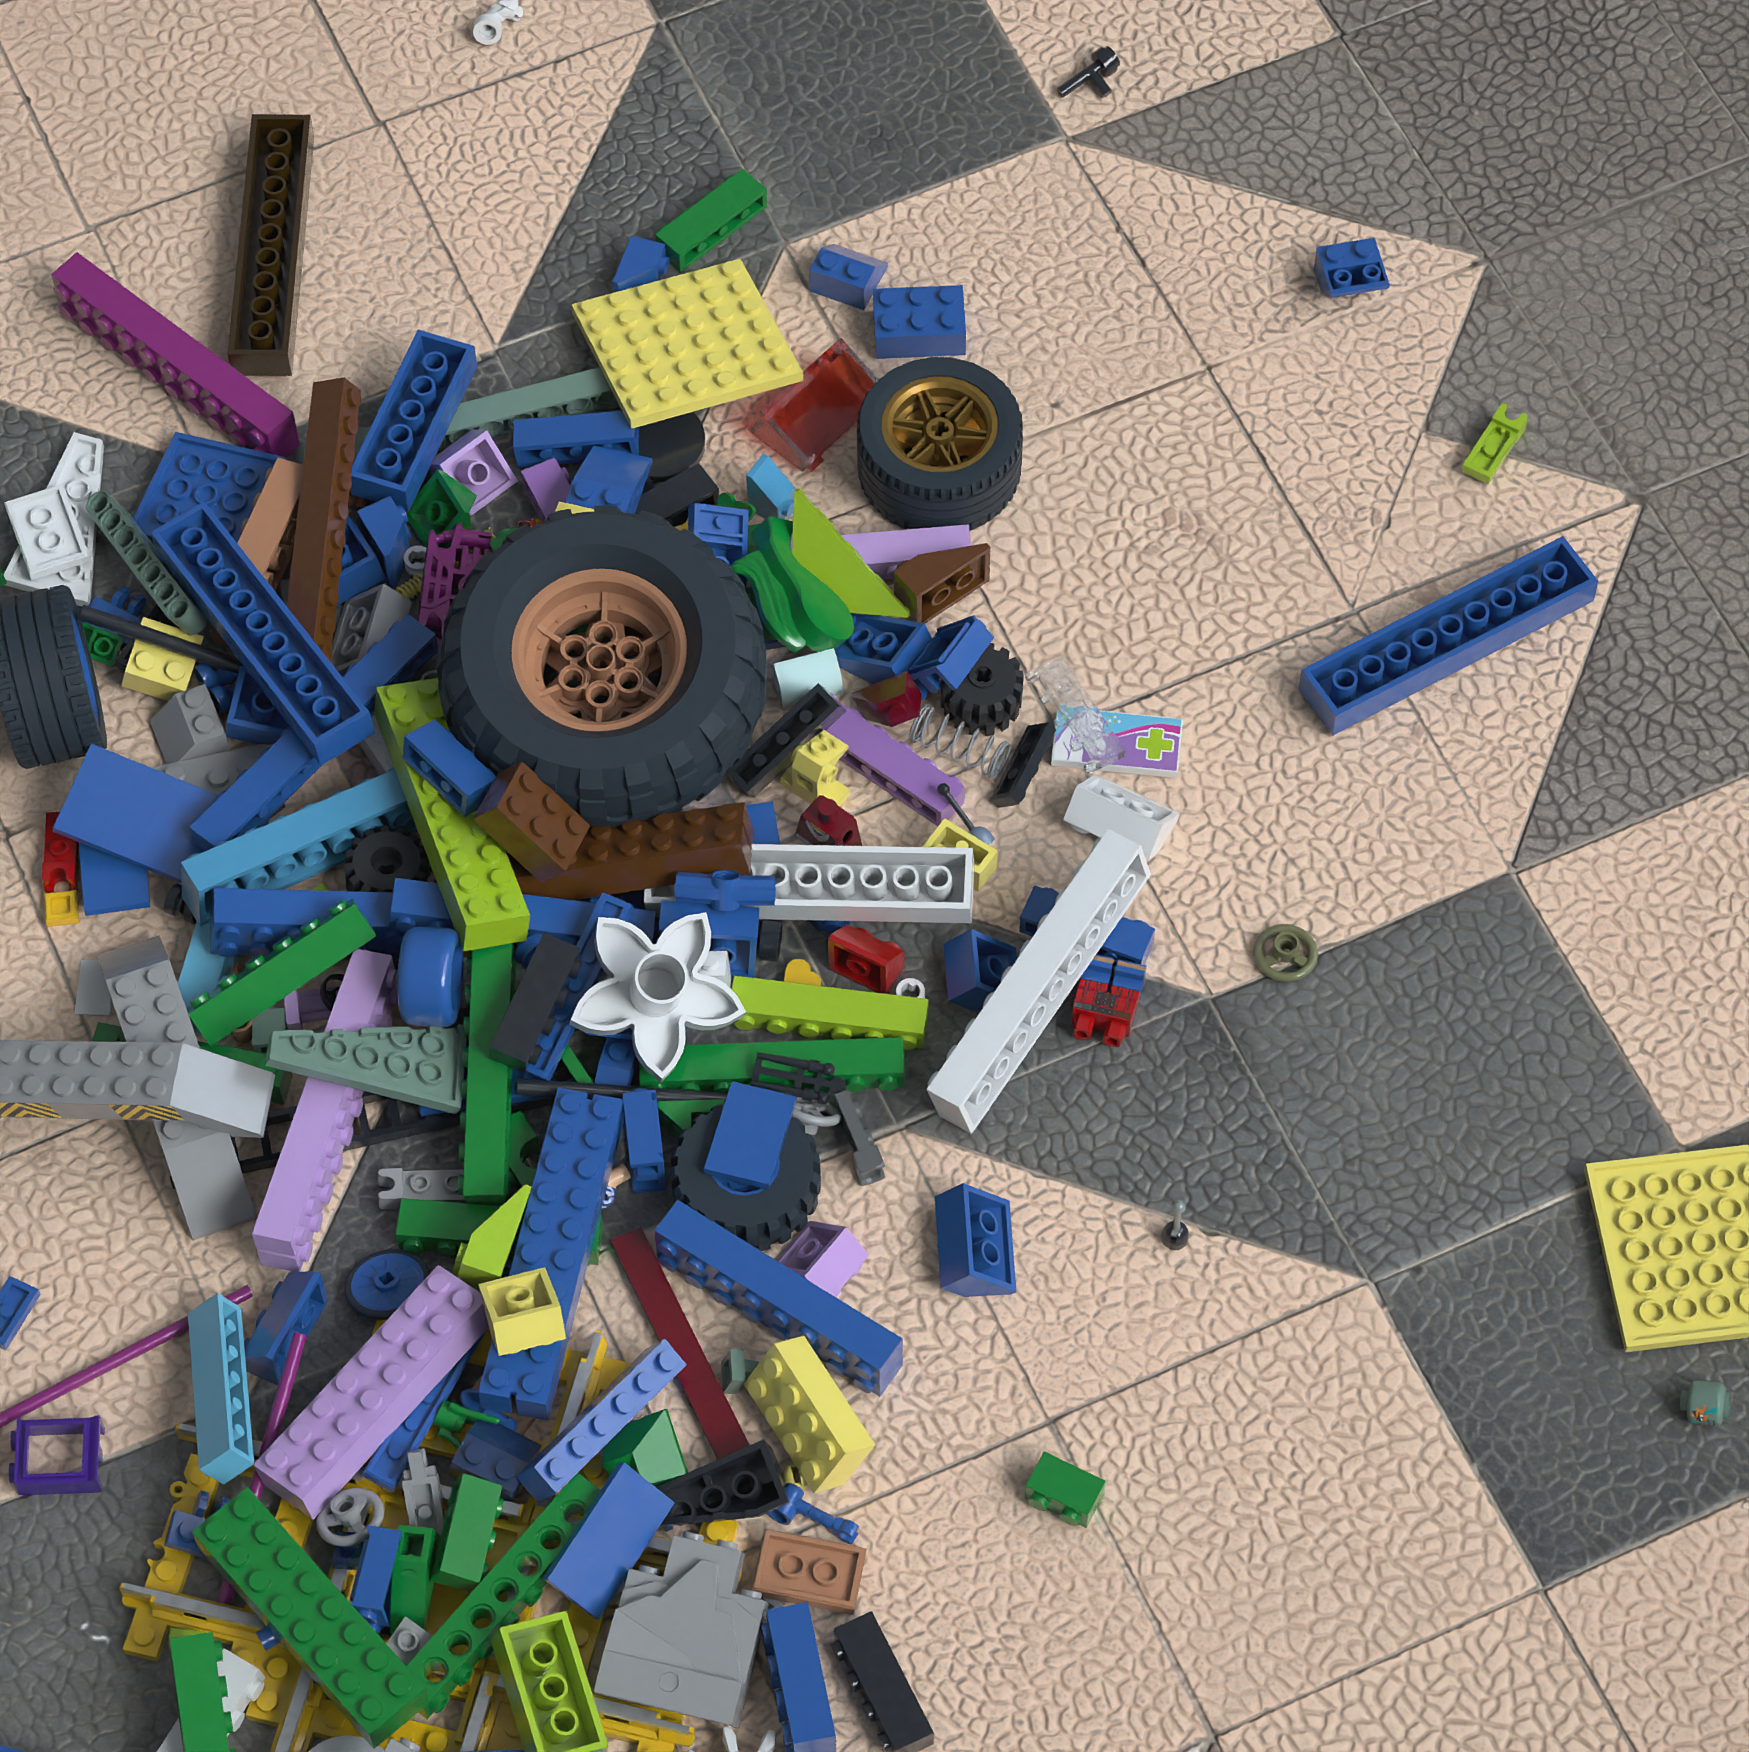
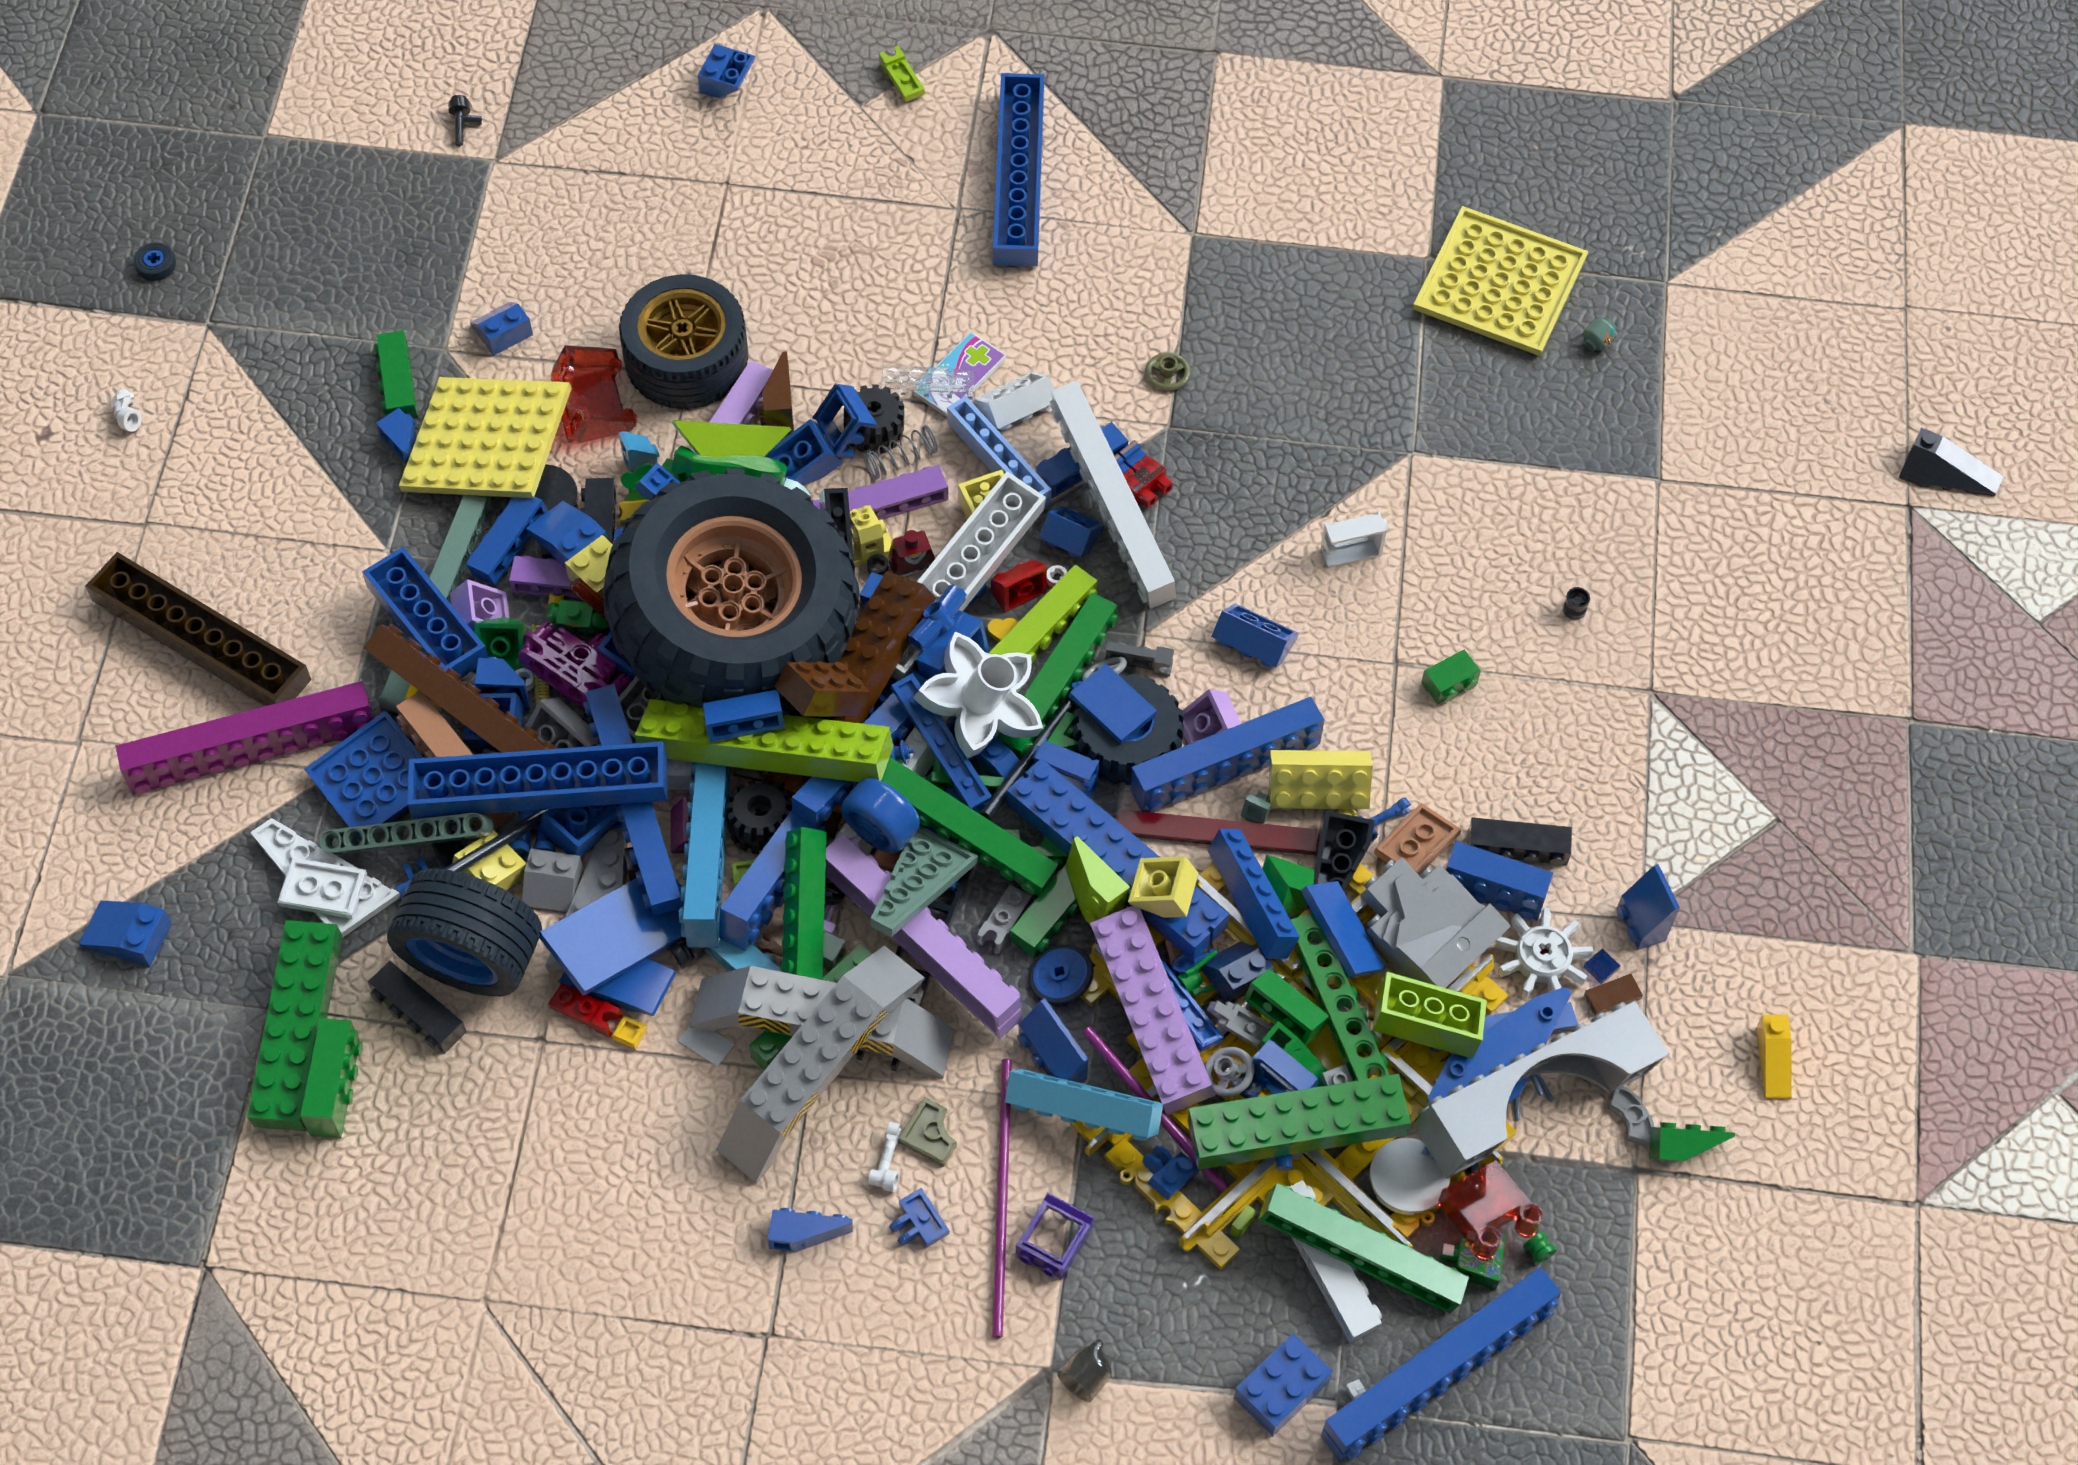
camera: 60 degrees left, 0 degrees up
(32, 1247) = (883, 1176): none -> white brick
(113, 1260) = (927, 1133): none -> olive tile
(535, 1002) = (945, 765): black brick -> none
(792, 798) = (877, 558): none -> black bush
(836, 1084) = (1099, 646): black piece -> none
(890, 700) = (848, 469): dark red slope -> none
(919, 322) = (573, 307): blue brick -> none
(979, 832) = (936, 474): black hinge -> none
(1023, 765) = (946, 434): black plate -> none
(1024, 841) = (992, 446): none -> light blue brick
(1176, 1229) = (1315, 527): black hinge -> none
(1177, 1277) = (1354, 540): none -> white window
(1273, 1572) = (1576, 603): none -> black wheel

